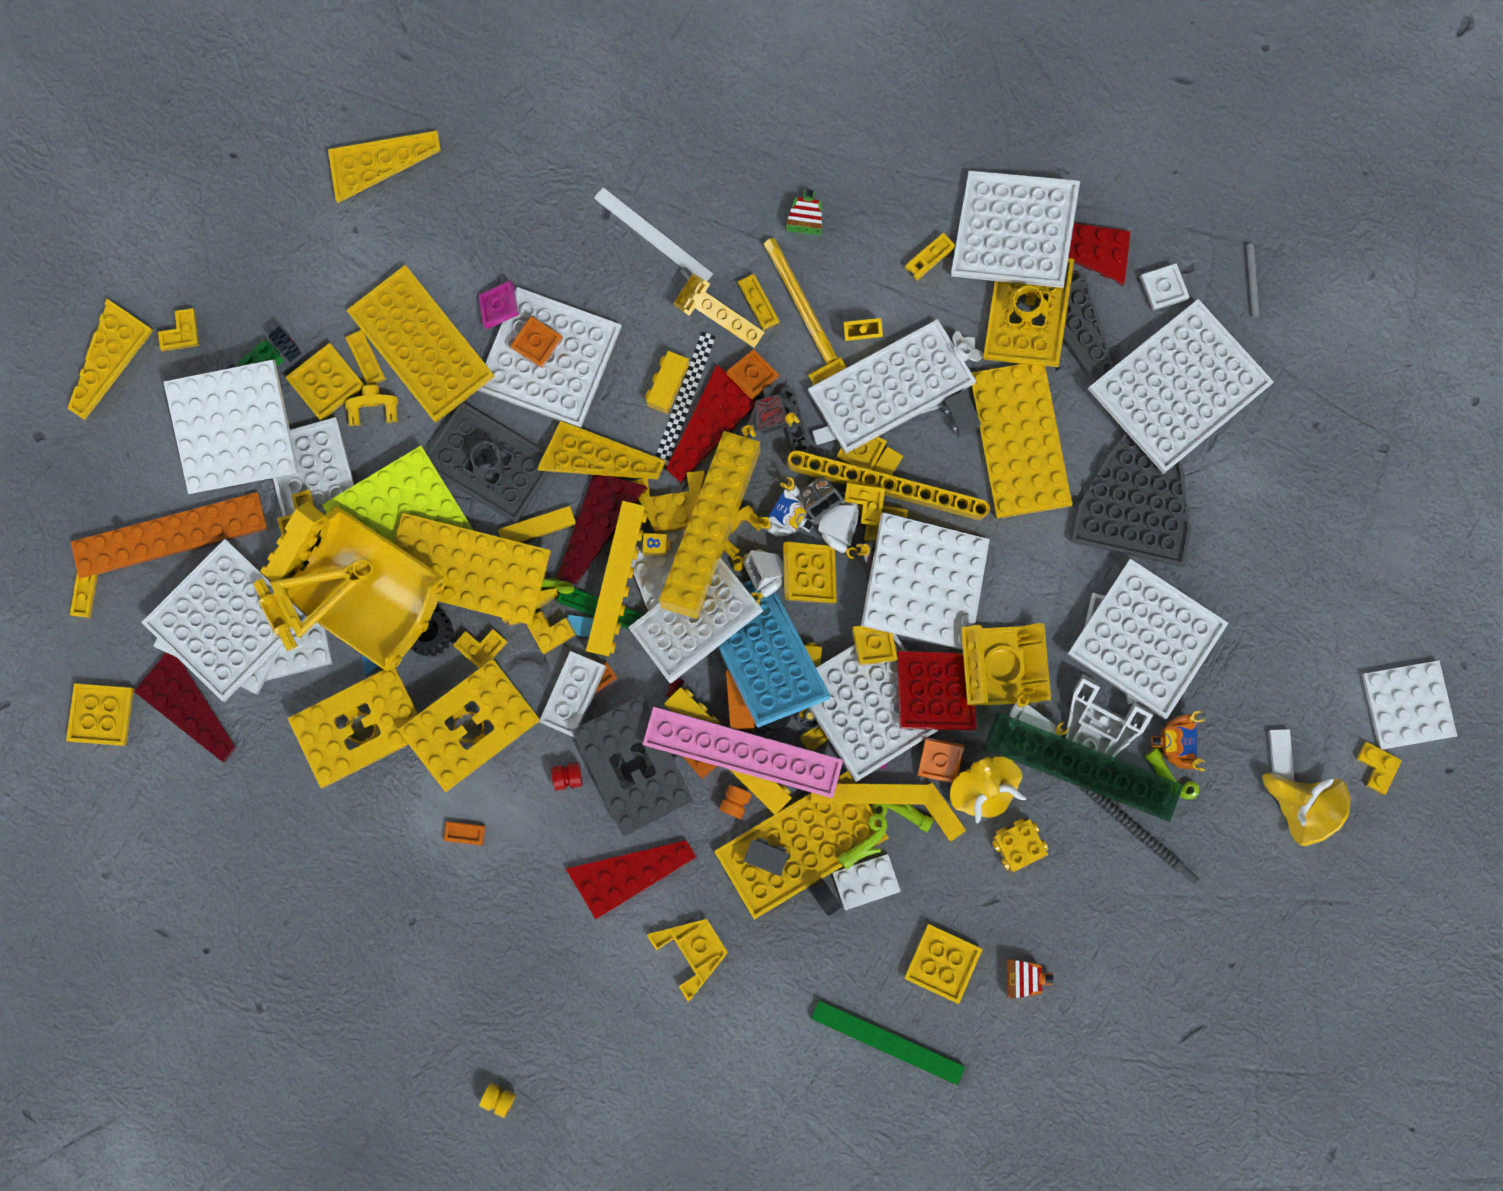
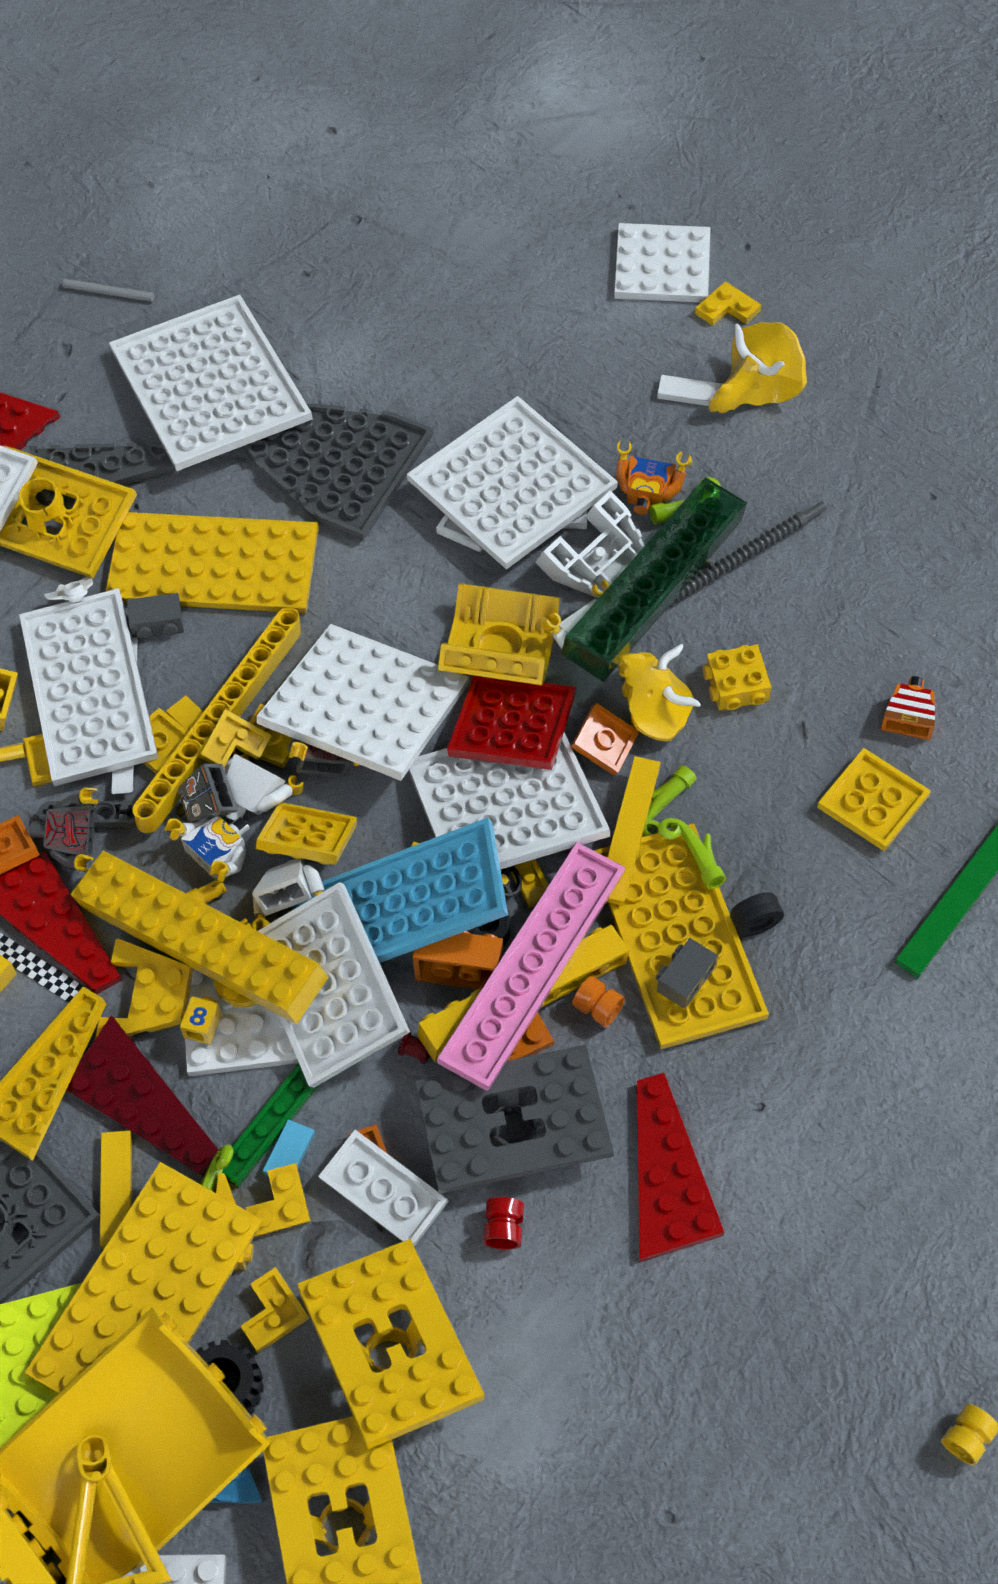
camera: 75 degrees left, 20 degrees down
(464, 833) = (551, 1401): orange tile -> none
(616, 577) = (234, 1084): yellow brick -> none
(699, 946) = (794, 1096): yellow wing -> none
(866, 882) = (746, 862): white plate -> none
(873, 646) = (431, 777): yellow plate -> none
(943, 814) = (686, 753): yellow tile -> none
(1164, 287) = (80, 373): white plate -> none

